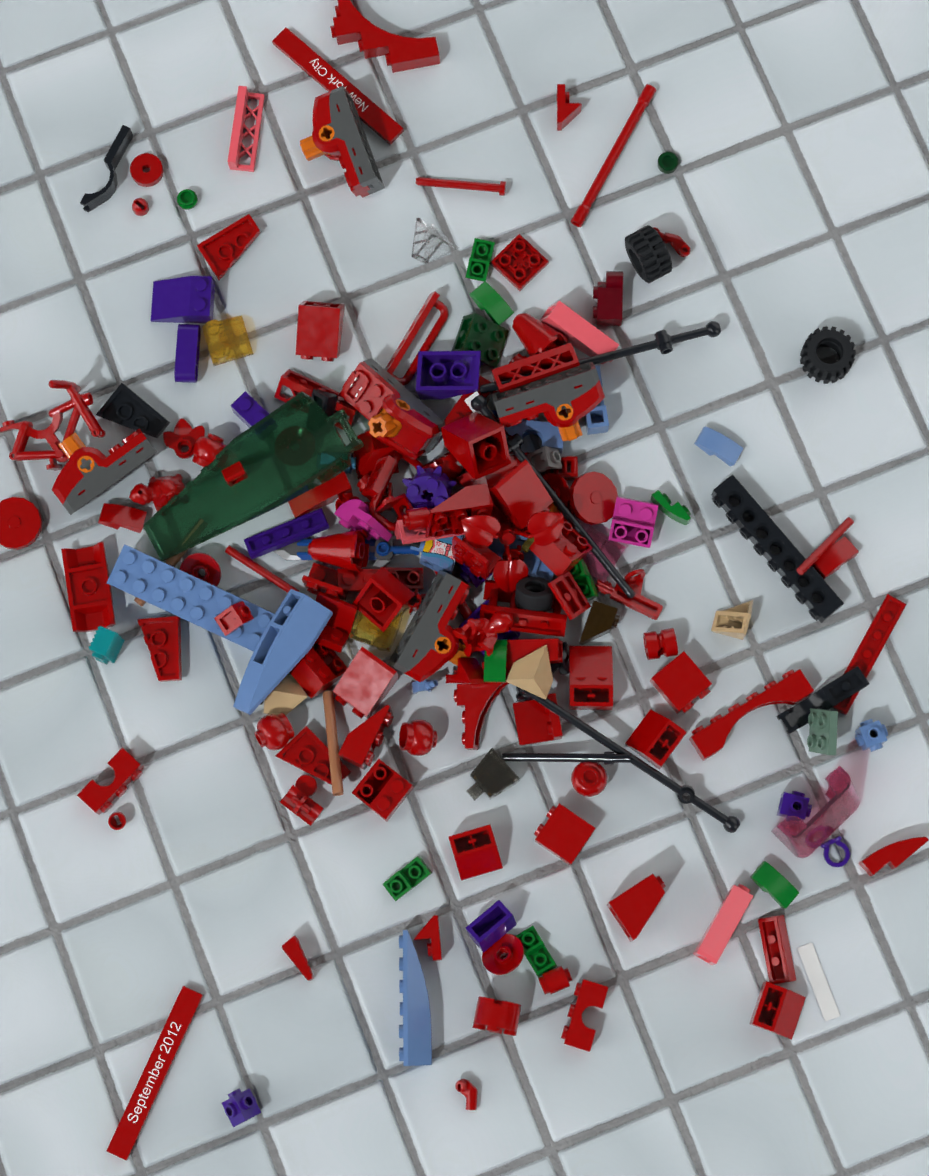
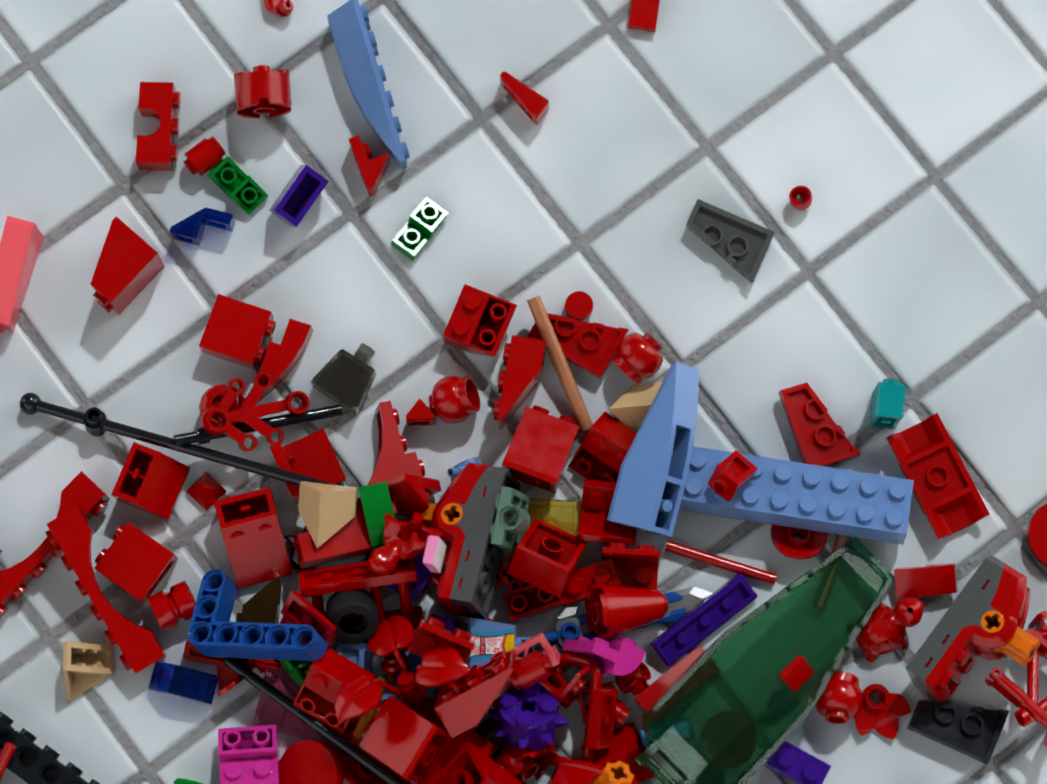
camera: 160 degrees right, 0 degrees up
(125, 769) = (833, 220): red arch -> none
(177, 804) = (731, 237): none -> dark grey wing
(301, 805) = (575, 276): red hips -> none
(399, 632) = (511, 519): none -> sand green plate
(446, 734) = (420, 415): none -> red slope
(463, 614) = (434, 554): none -> tile
(475, 852) = (343, 281): red slope -> none
(506, 946) = (286, 161): red dish -> none
(536, 805) = (282, 358): none -> red slope
(568, 765) = (249, 412): none -> red plant
(578, 925) = (192, 228): none -> clear blue slope
(614, 600) = (218, 637): none -> blue beam
(617, 724) = (206, 491): none -> red slope
(668, 588) = (183, 682): none -> clear blue slope
(694, 626) = (136, 642): none -> red arch

